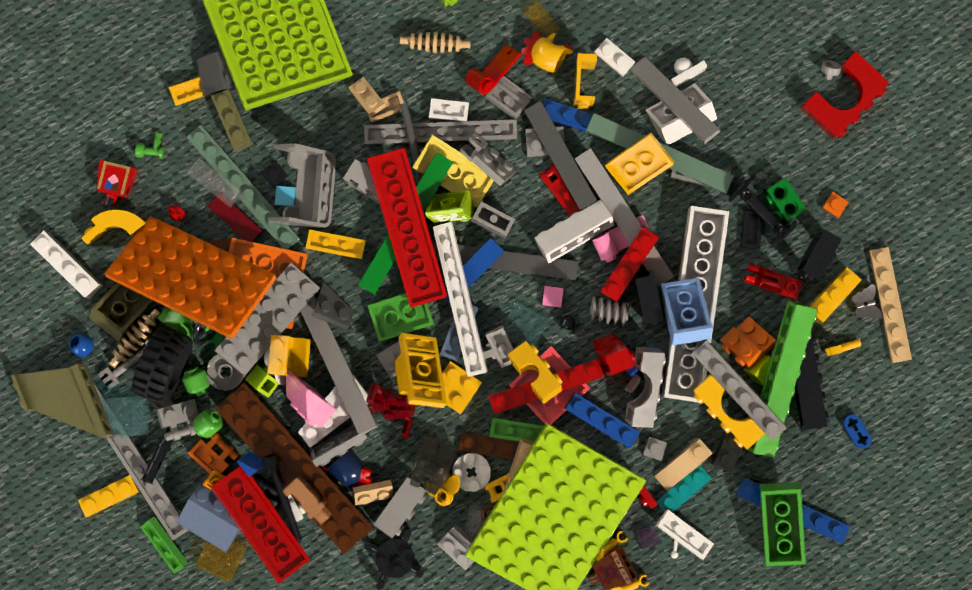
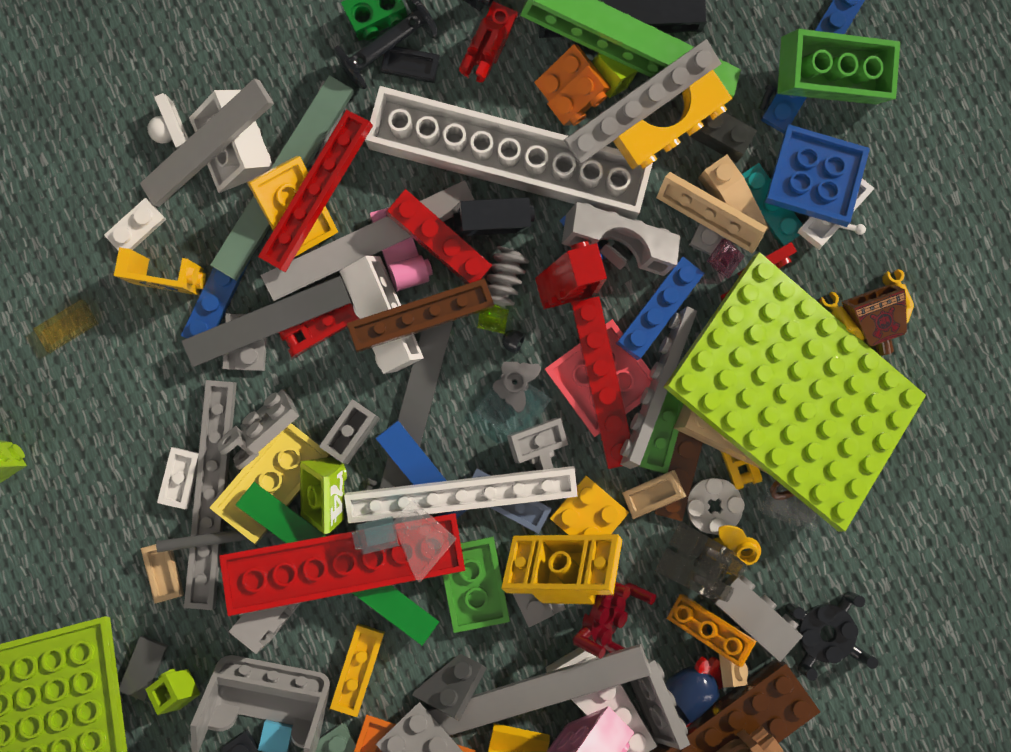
camera: 85 degrees left, 0 degrees up
(309, 125) = (172, 691): none -> lime brick
(321, 103) = (143, 667): none -> dark grey tile
(367, 97) = (142, 598): tan plate -> none
(386, 484) = (724, 638): none -> light orange tile
(412, 40) = (74, 487): tan piece -> none
(427, 246) = (375, 535): none -> clear light blue brick
(428, 276) = (421, 539): none -> clear wing
(456, 544) = (818, 540): light grey plate -> none
(474, 429) = (654, 494): none -> tan tile
(493, 73) = (141, 416): red door -> none
(509, 97) = (172, 387): light grey plate -> none
(526, 358) = (559, 406): yellow arch -> none
(531, 327) = (514, 394): none -> flat silver animal
(539, 419) = (654, 395): none -> light grey plate
(544, 53) = (111, 326): yellow piece -> none
(552, 296) = (473, 358): bright pink tile -> none
(576, 258) = (420, 315): none -> reddish brown plate
(581, 307) = (493, 319): none -> clear neon green plate
(642, 461) = (725, 258): none -> clear pink tile
(647, 537) = (832, 263): clear purple plate -> none
(651, 178) = (315, 190): none -> red plate
(671, 447) = (711, 212): none -> tan plate
(686, 311) = (519, 163): light blue slope -> none
(706, 517) = (817, 175): none -> blue plate

